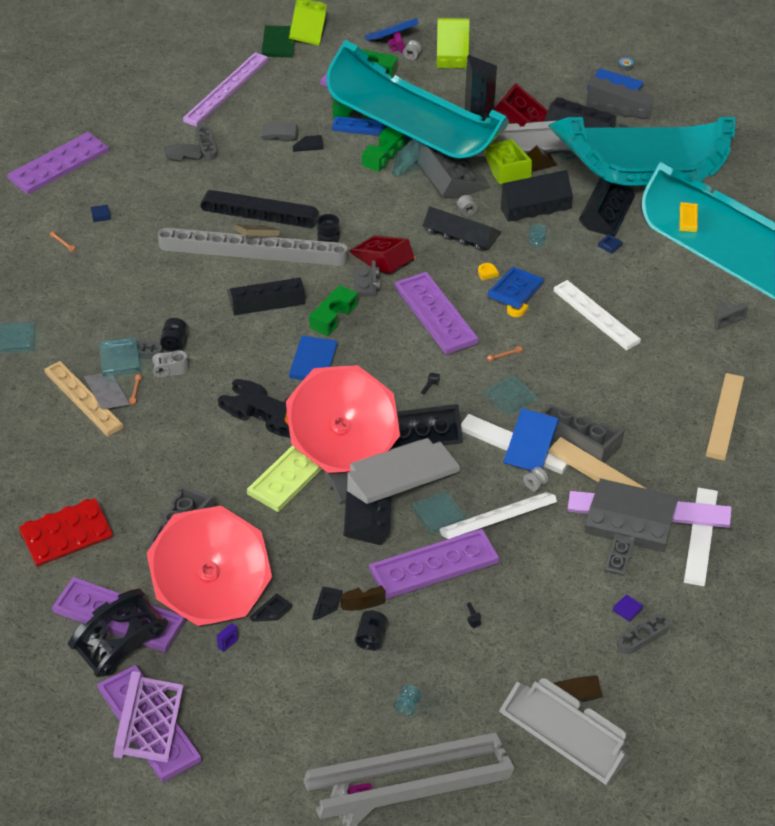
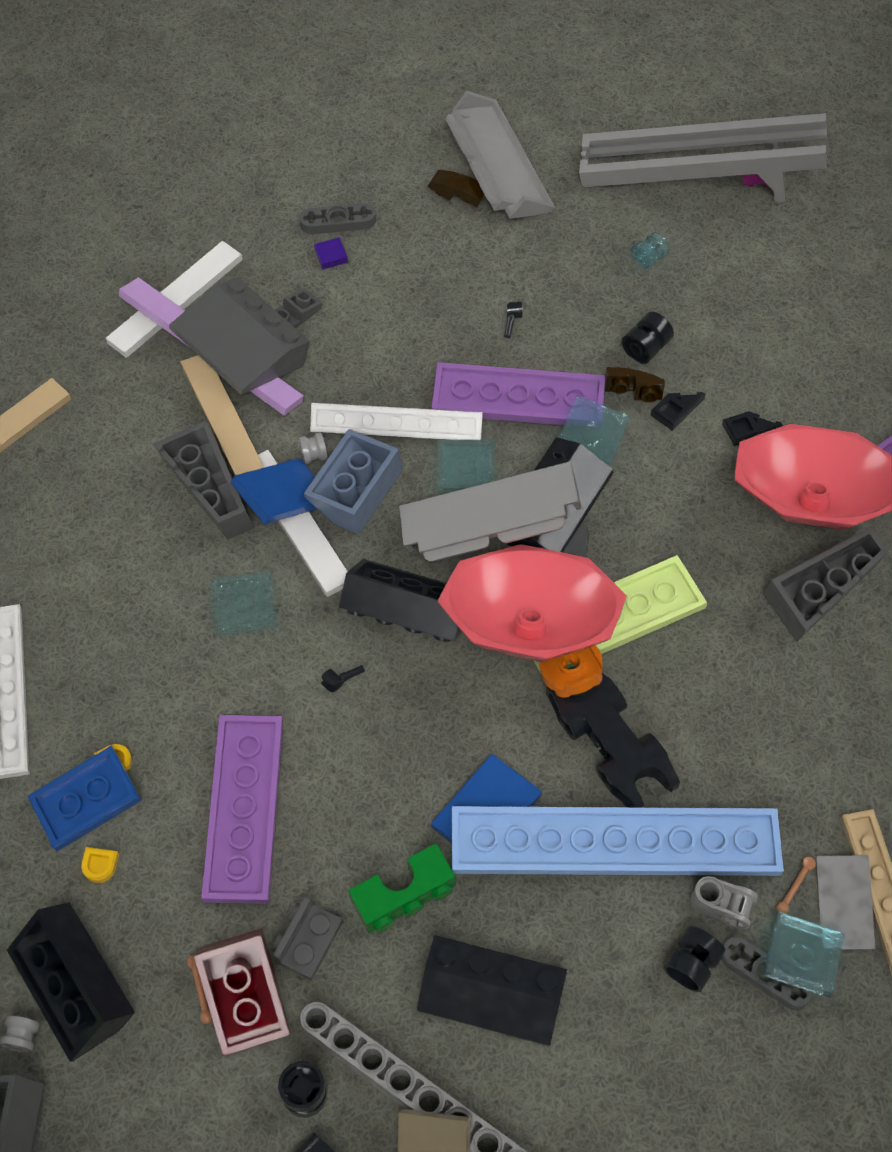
camera: 150 degrees left, 15 degrees up
(227, 637) = (825, 405): dark purple tile -> none
(236, 364) = (616, 841): none -> light blue plate
(370, 555) = (595, 428): none -> clear light blue tile
(495, 464) = (354, 480): none -> sand blue slope
(518, 349) = (171, 681): nougat hinge -> none

